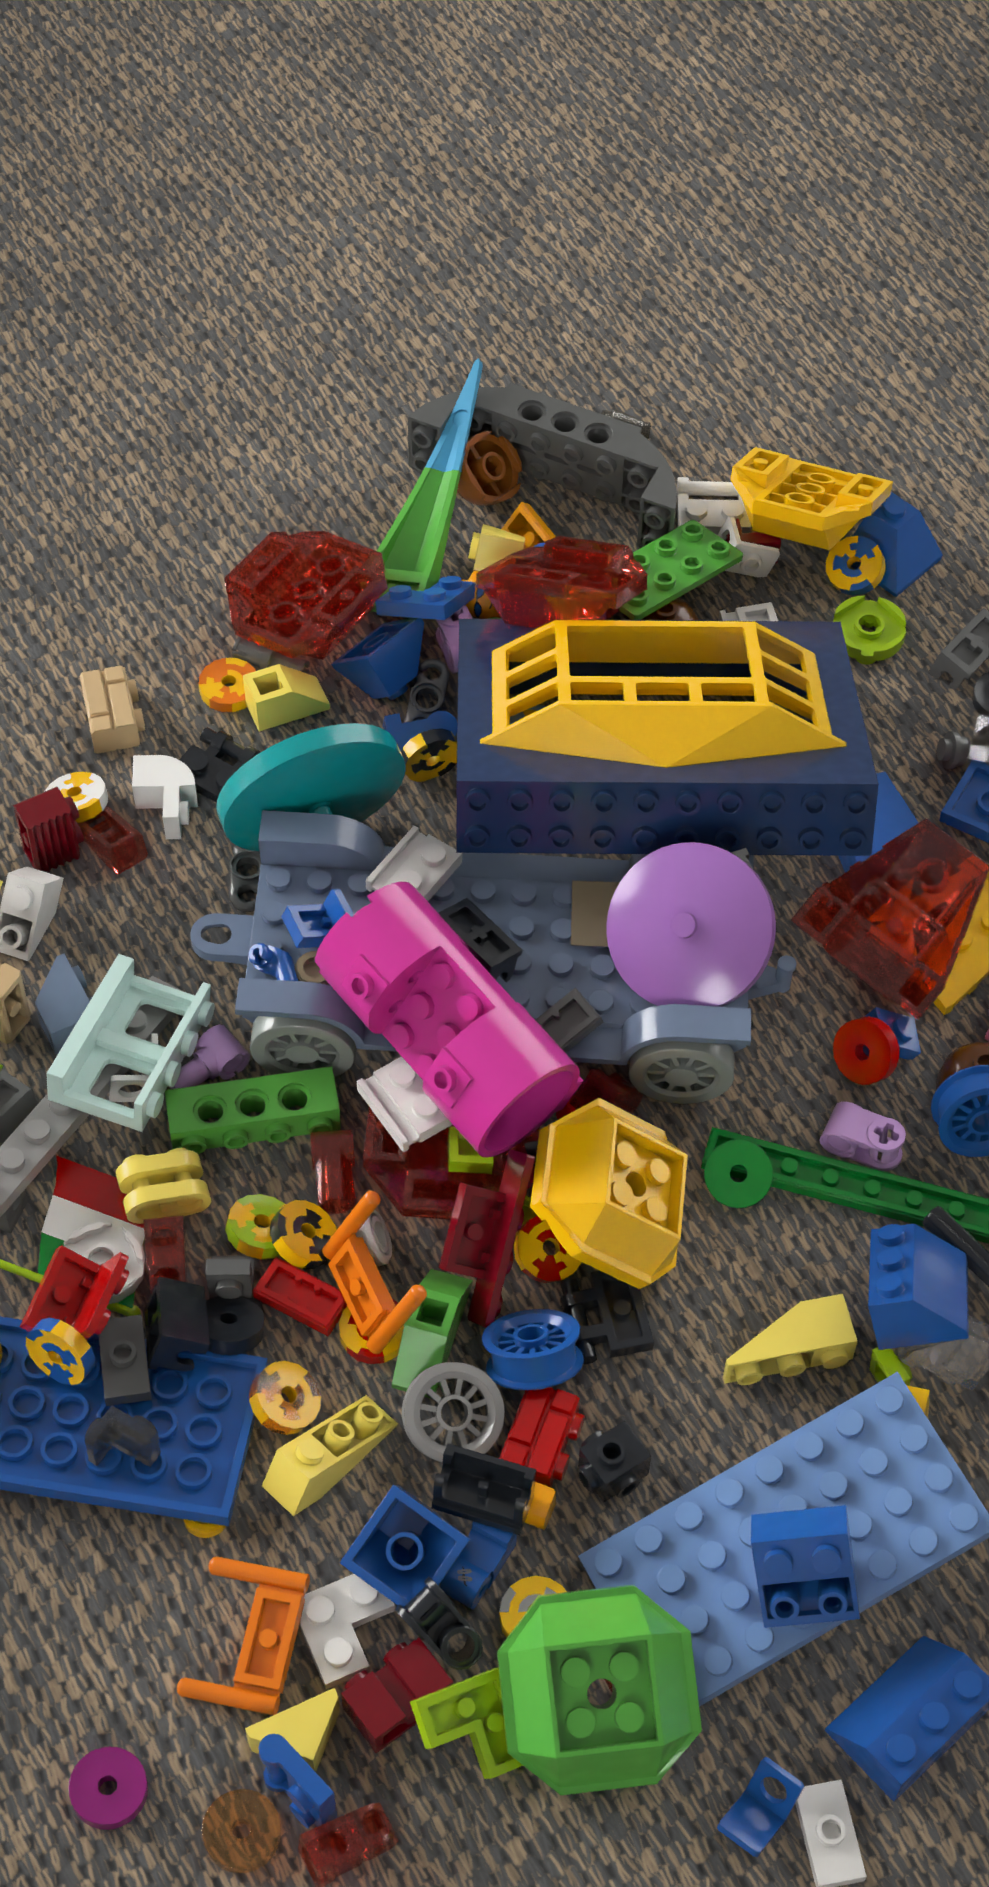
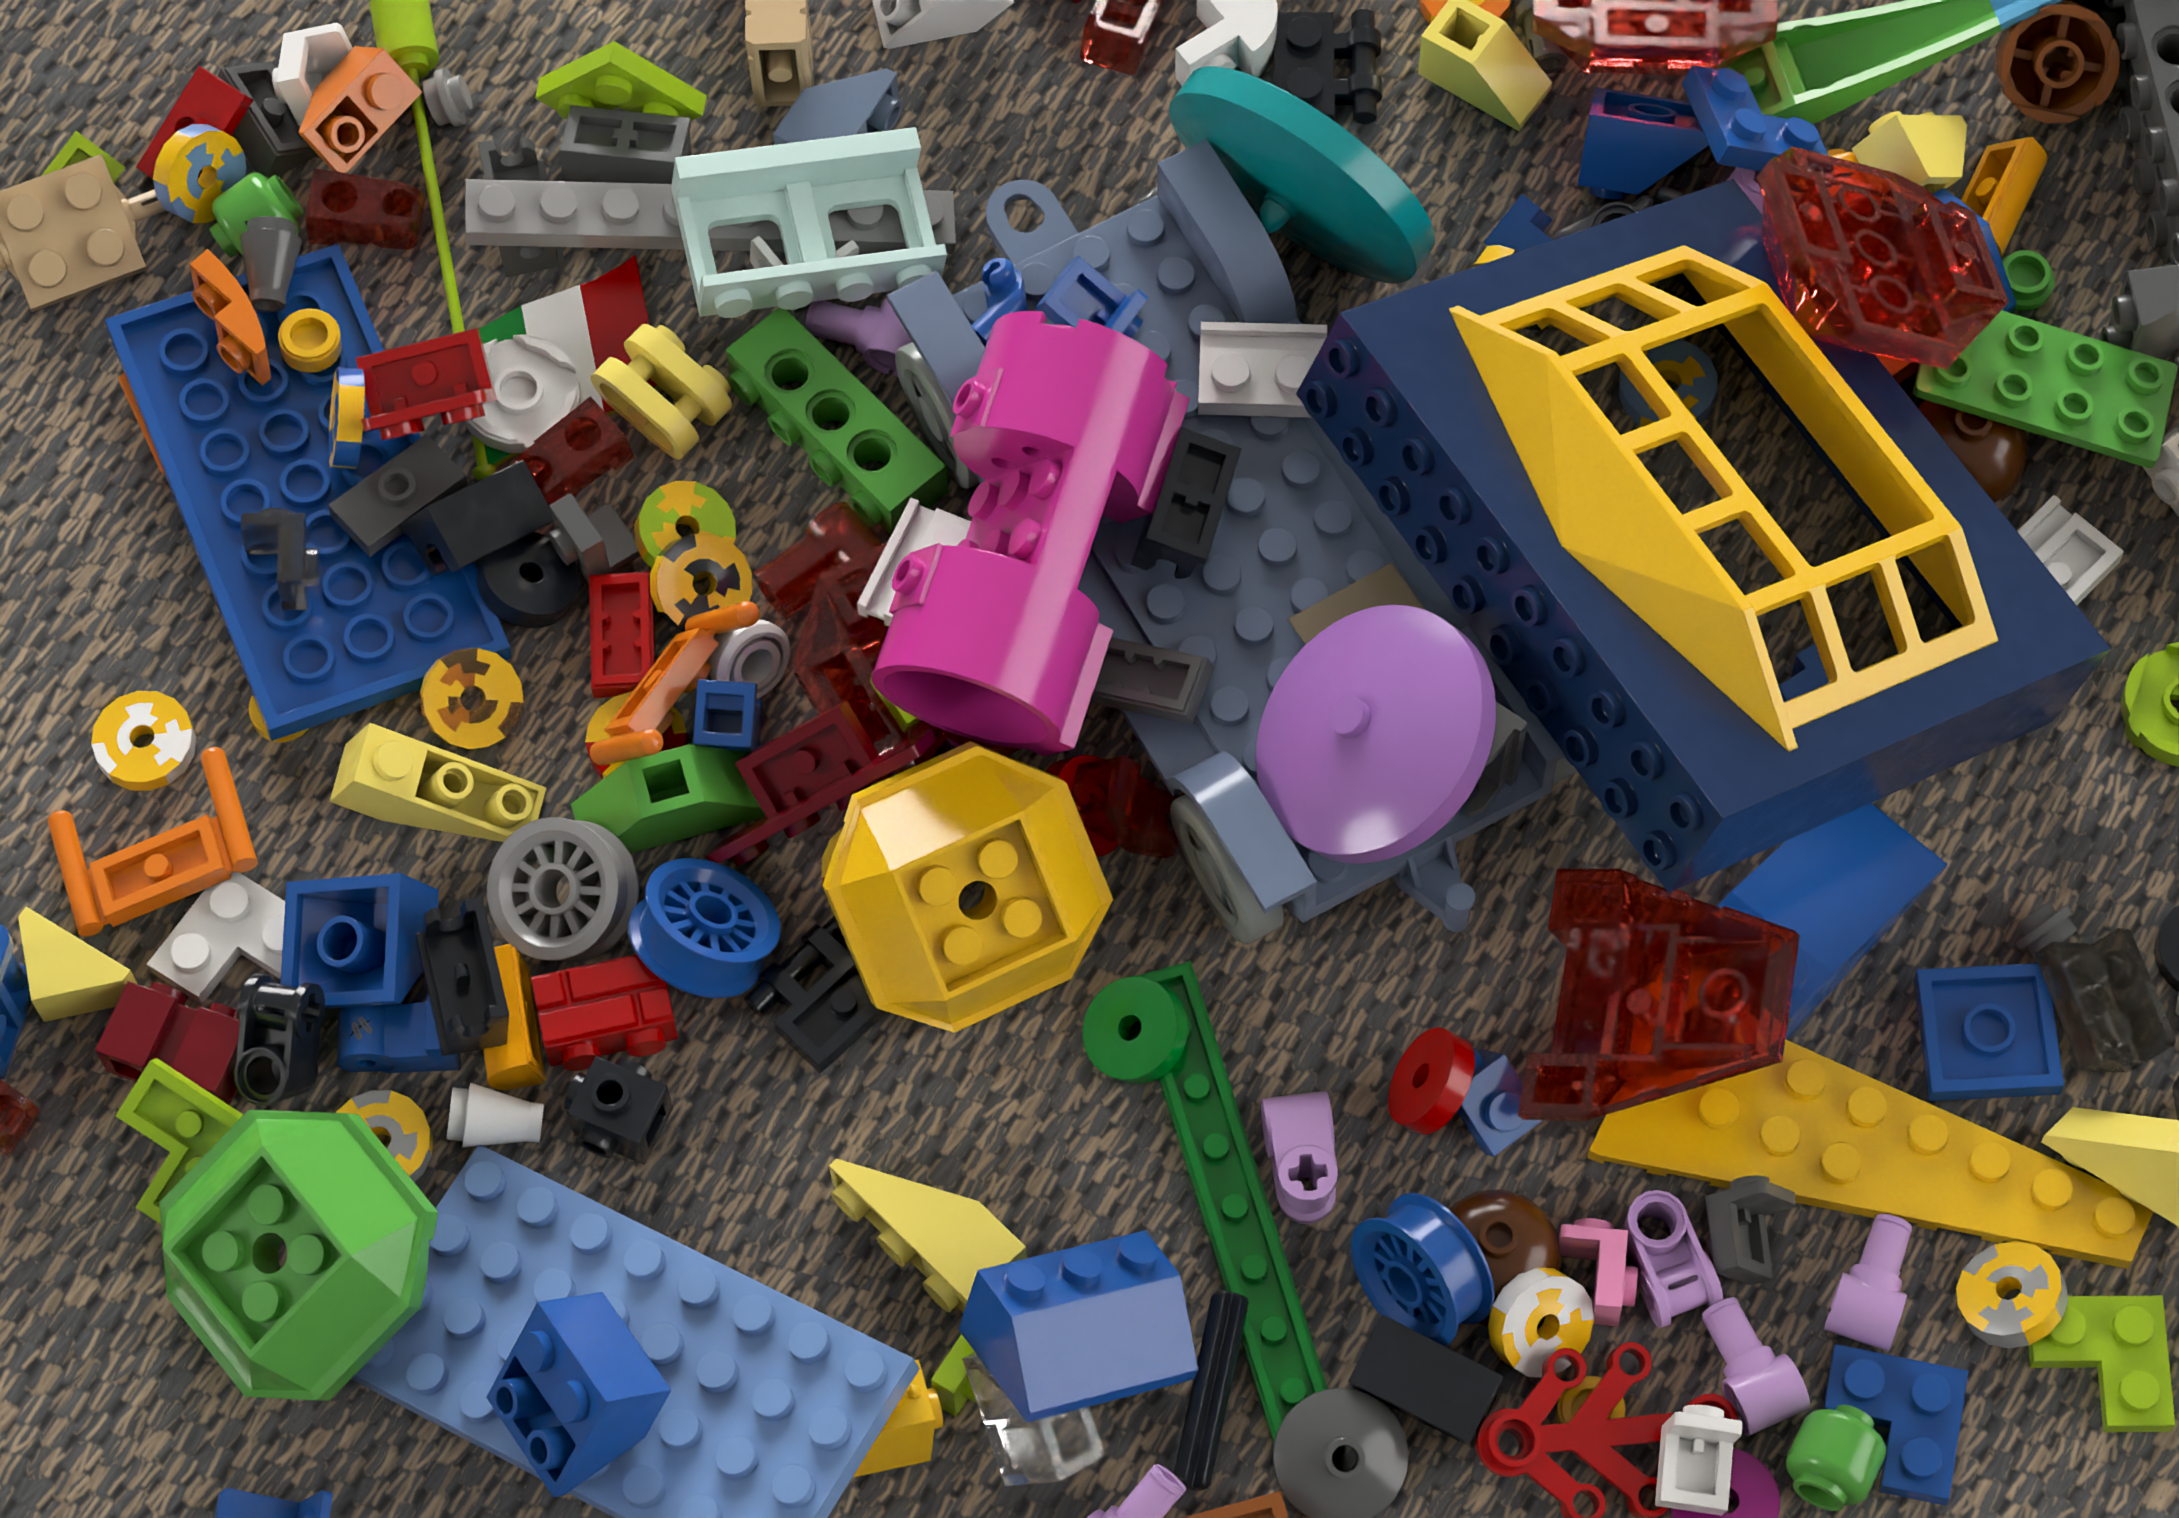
camera: 60 degrees right, 10 degrees up
(174, 1624) = (138, 715): none -> yellow piece
(410, 1260) = (727, 715): none -> blue leg
(563, 1542) = (492, 1117): none -> white cone

